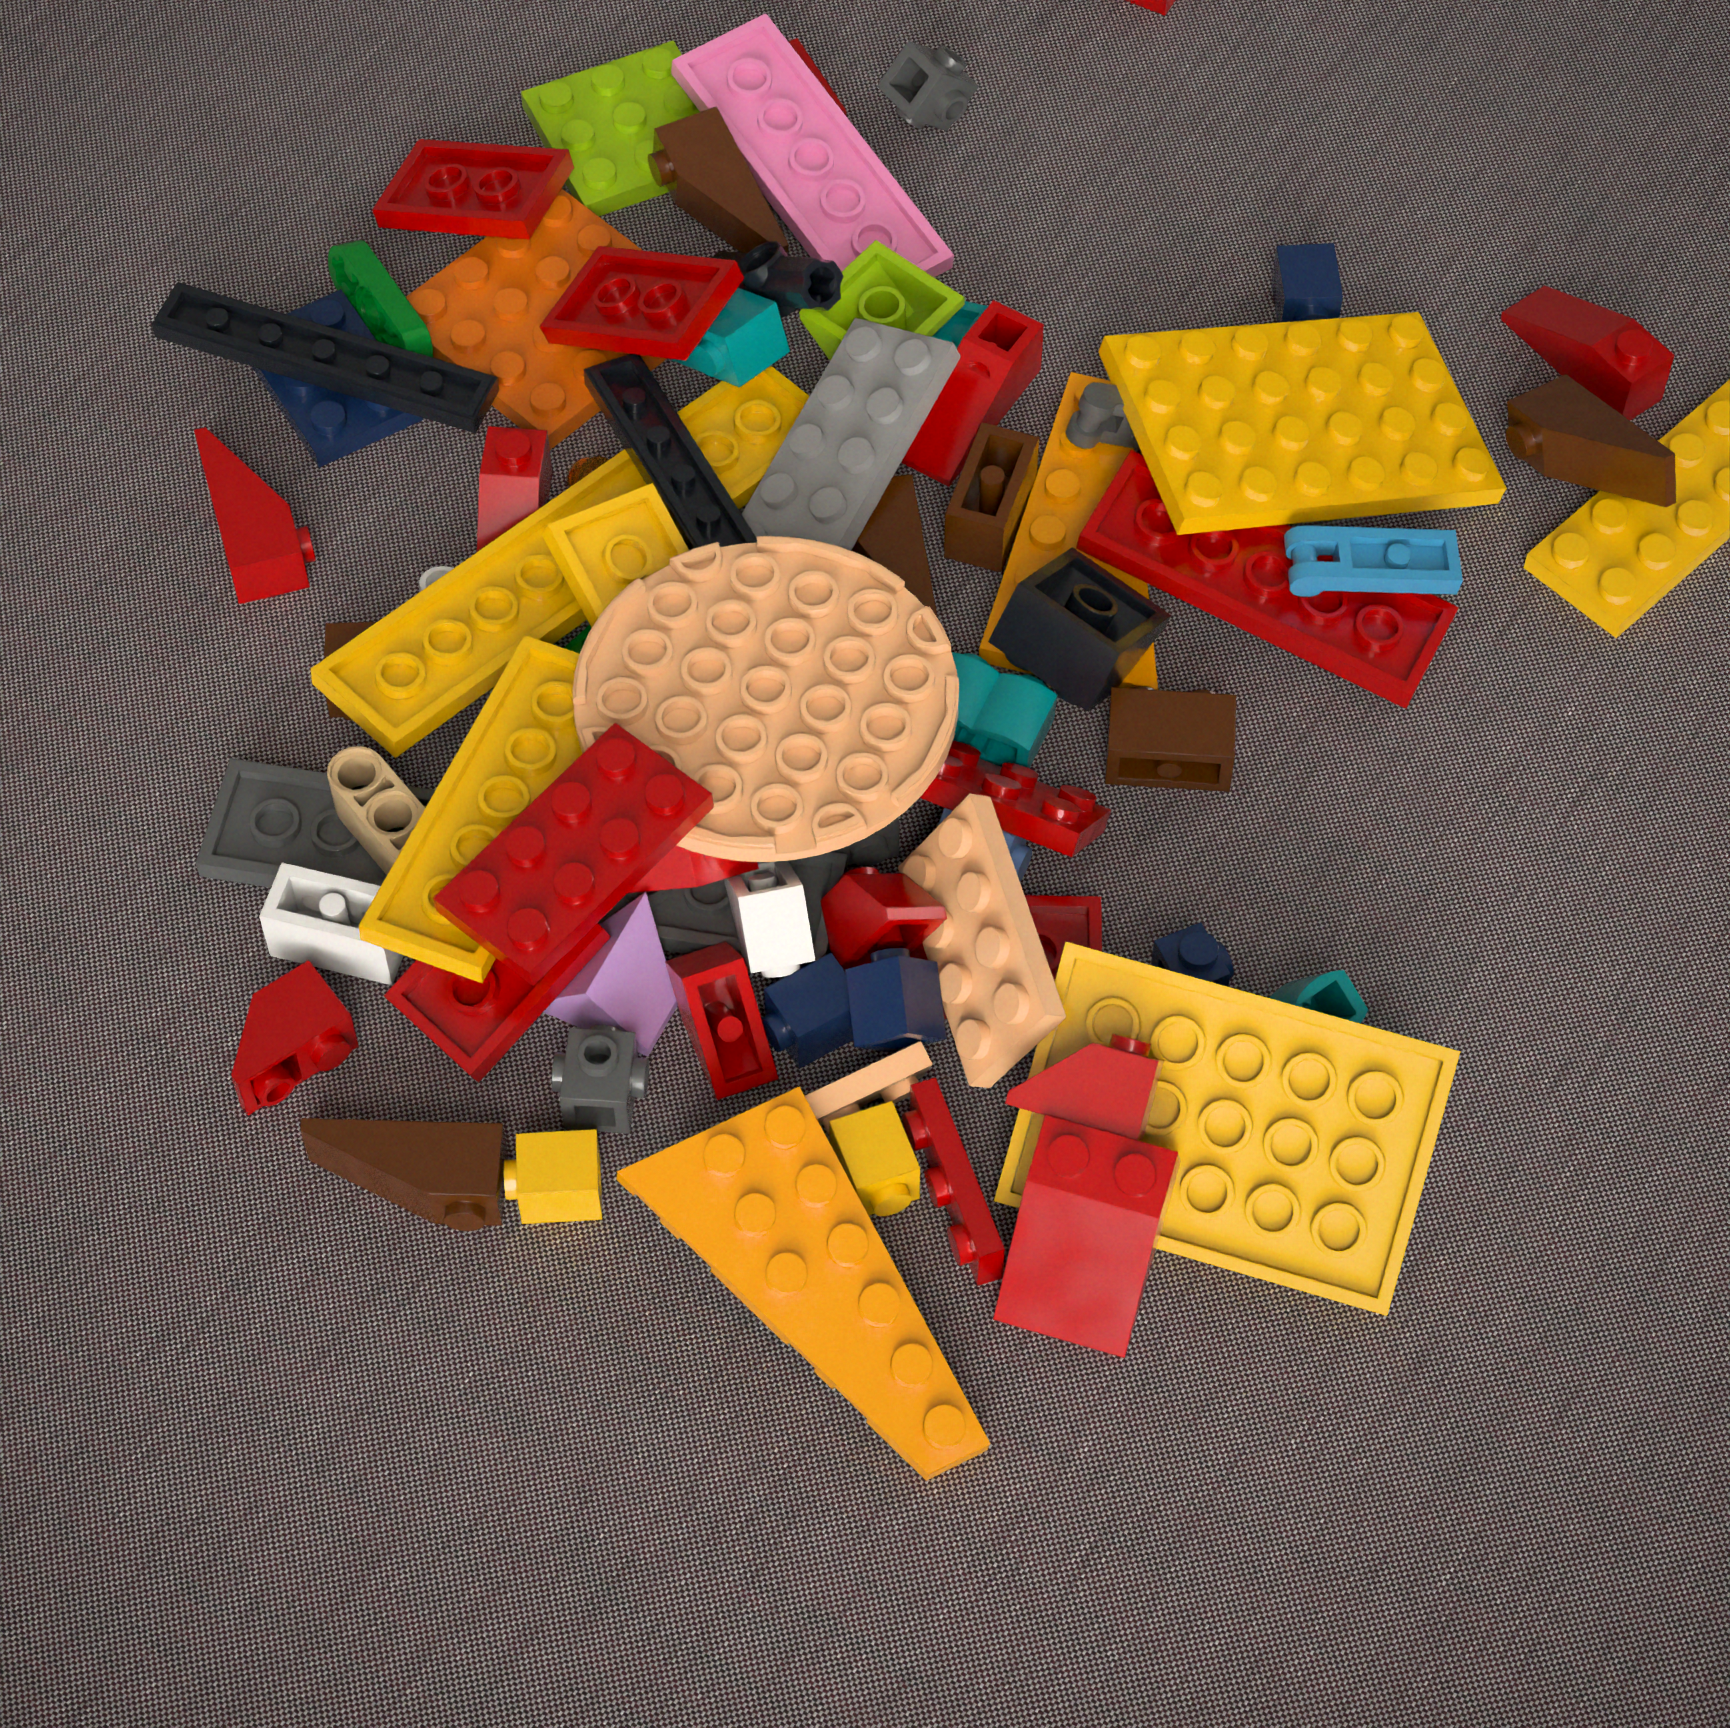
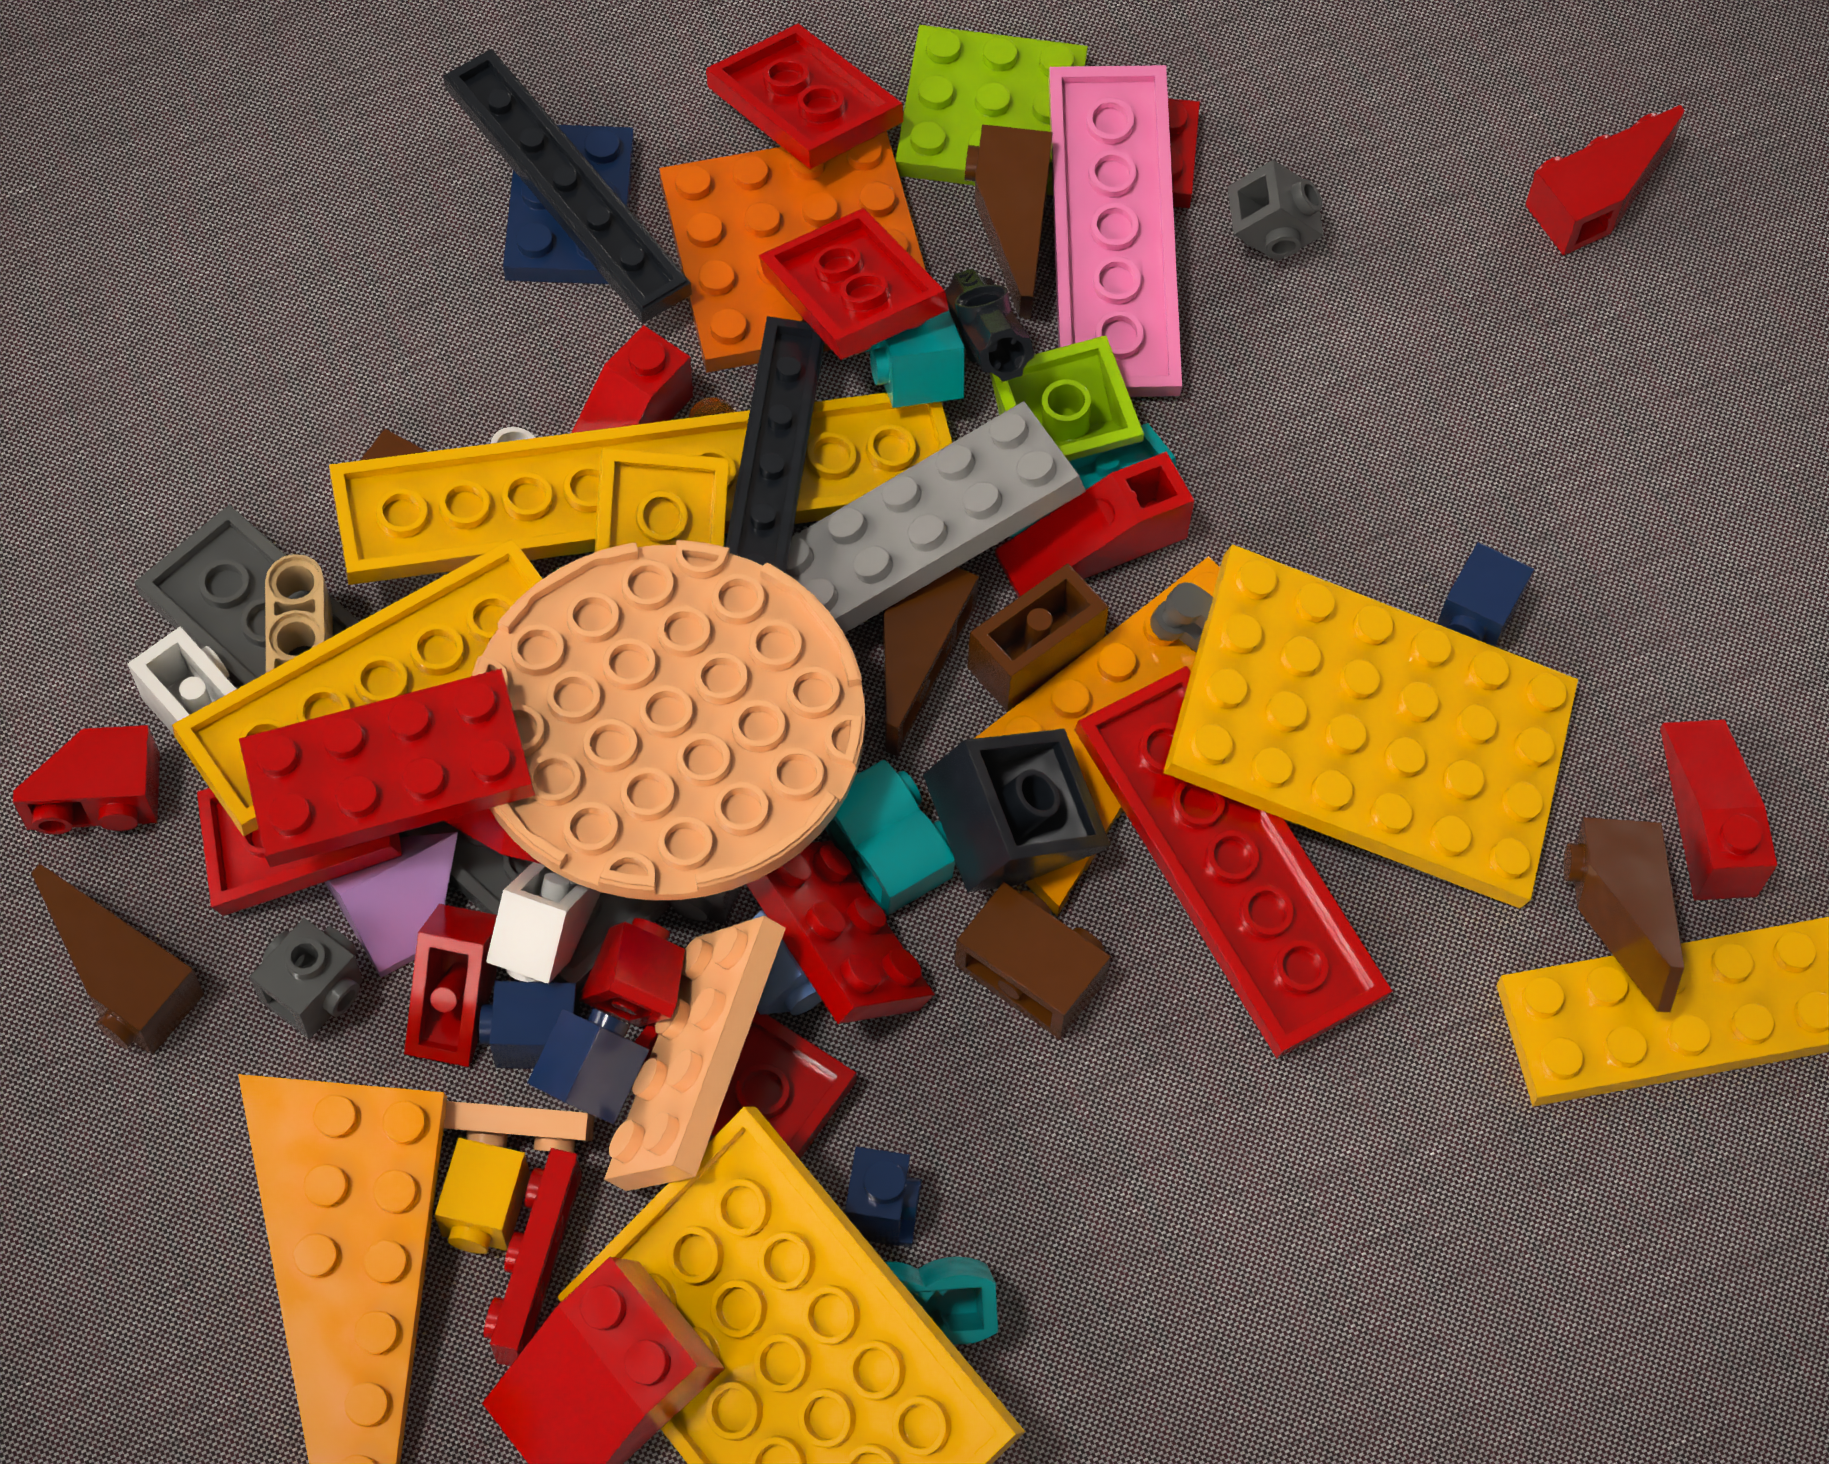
camera: 30 degrees right, 5 degrees up
(255, 526) = (395, 316): red slope -> none
(377, 297) = (652, 158): green beam -> none
(555, 1176) = (213, 1041): yellow brick -> none
(1096, 1087) = (680, 1261): slope -> none
(1373, 560) = (1333, 901): dark azure plate -> none

